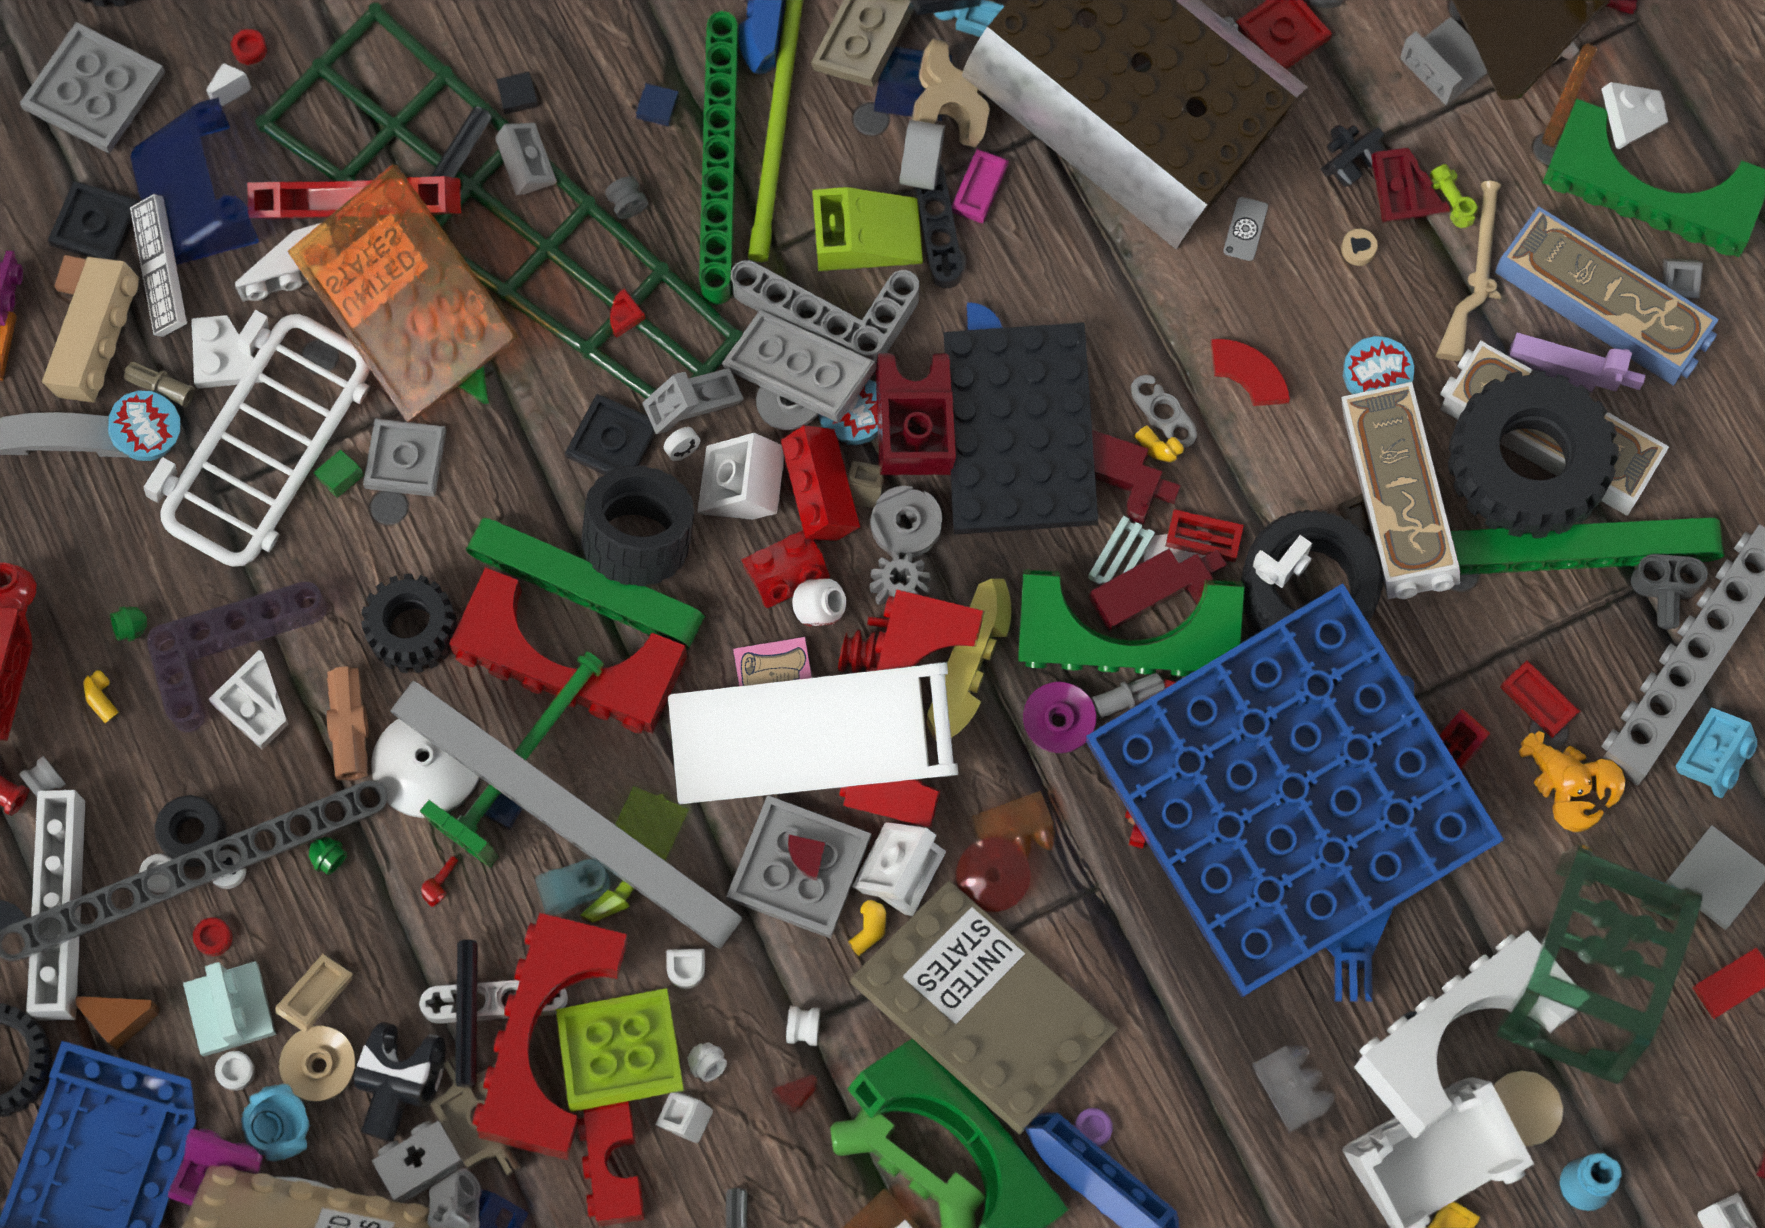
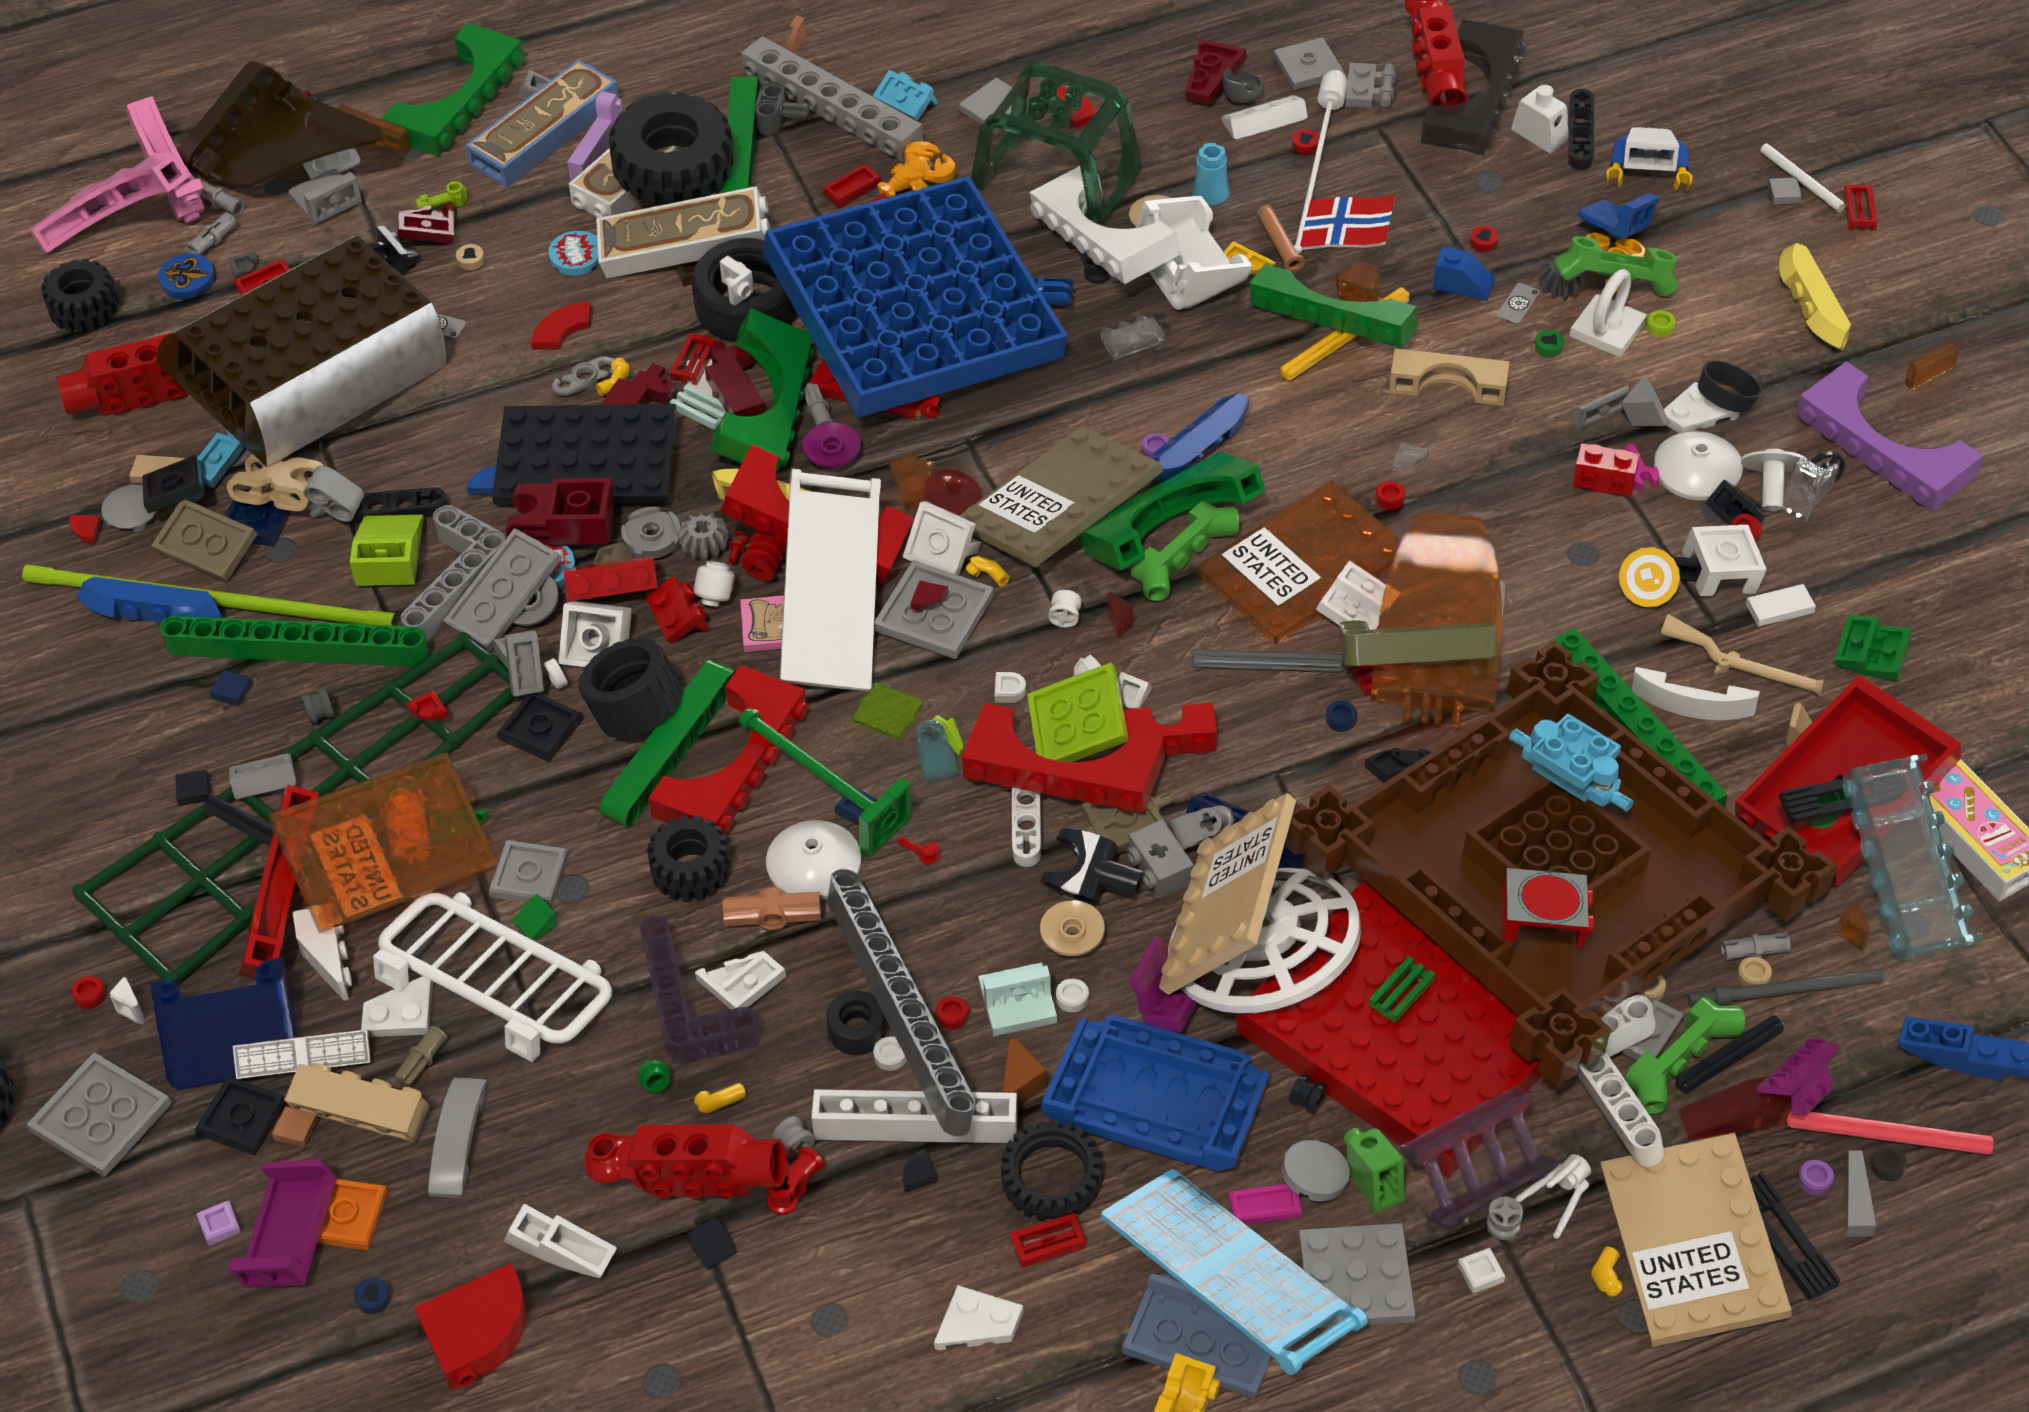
camera: 85 degrees left, 20 degrees down
(144, 425) = (461, 1063): tile -> none
(276, 1123) = (1119, 951): medium azure hair -> none
(314, 993) = (1010, 931): tan tile -> none
(327, 855) = (893, 922): green plate -> none
(466, 1013) = (1039, 818): black axle -> none
(566, 814) = (875, 740): light grey beam -> none
(979, 186) = (365, 476): dark pink tile -> none
(1453, 341) = (520, 190): tan piece -> none
(1633, 111) = (395, 91): white wing -> none

